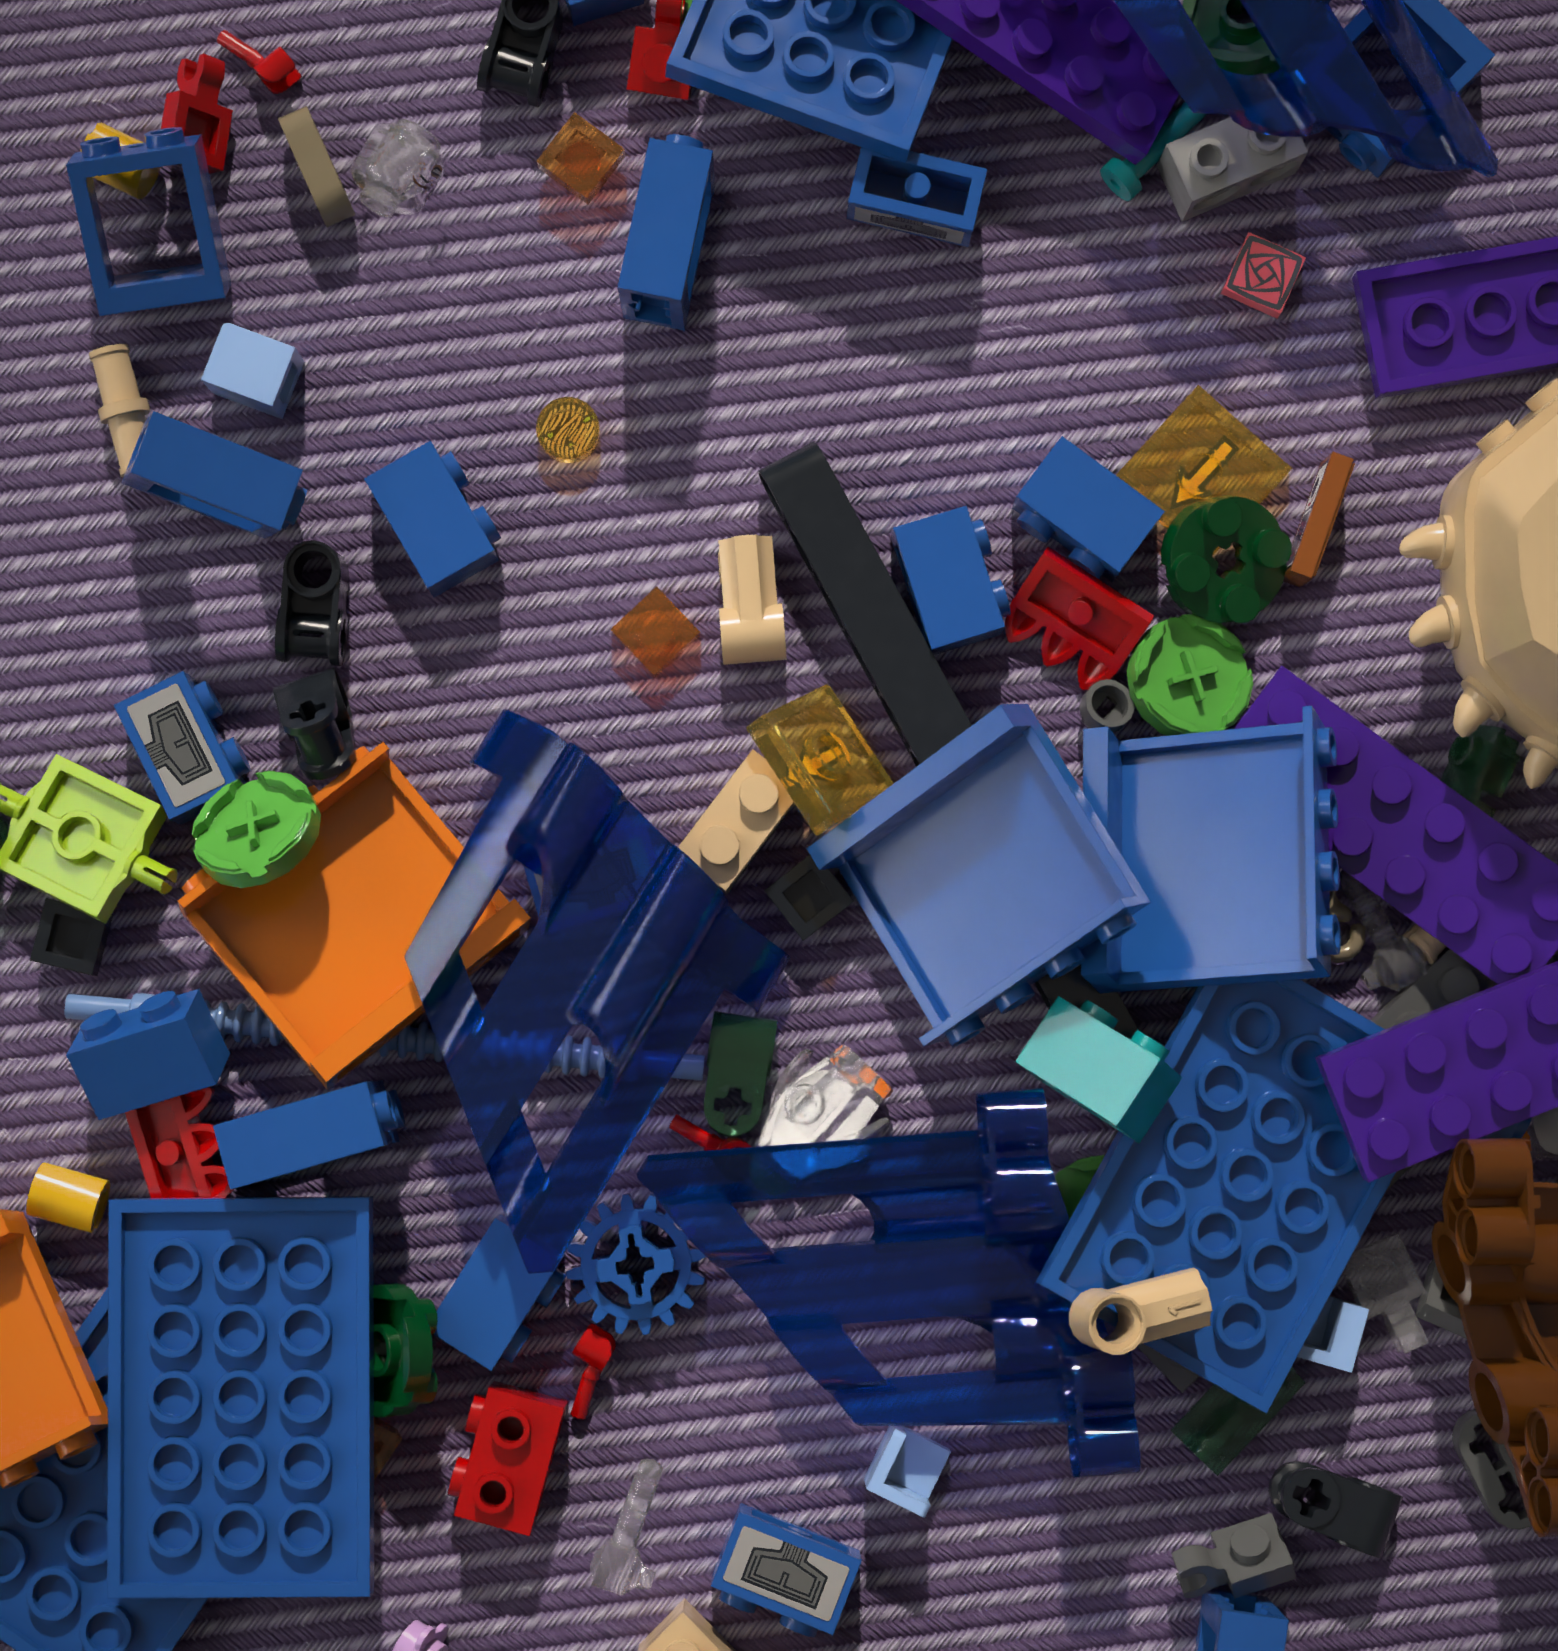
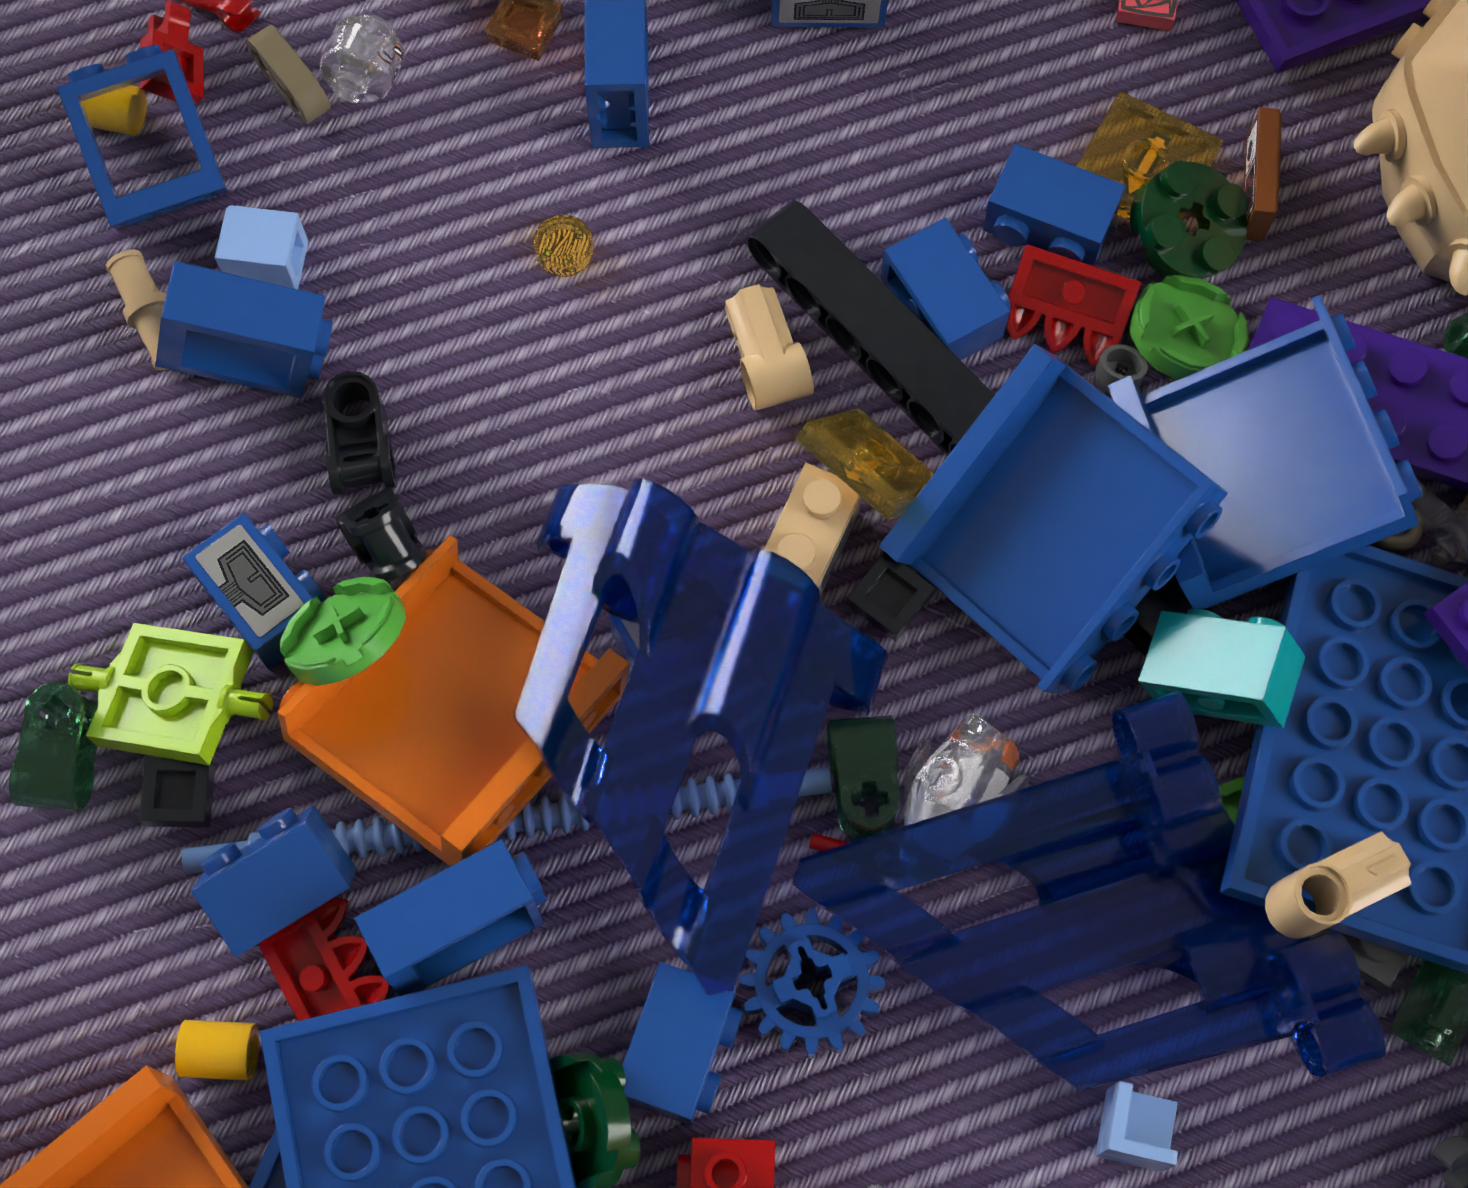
camera: 10 degrees left, 15 degrees down
(433, 518) = (456, 338): blue brick -> none
(595, 1349) = (789, 1083): red hand -> none
(655, 632) = (685, 398): clear orange plate -> none

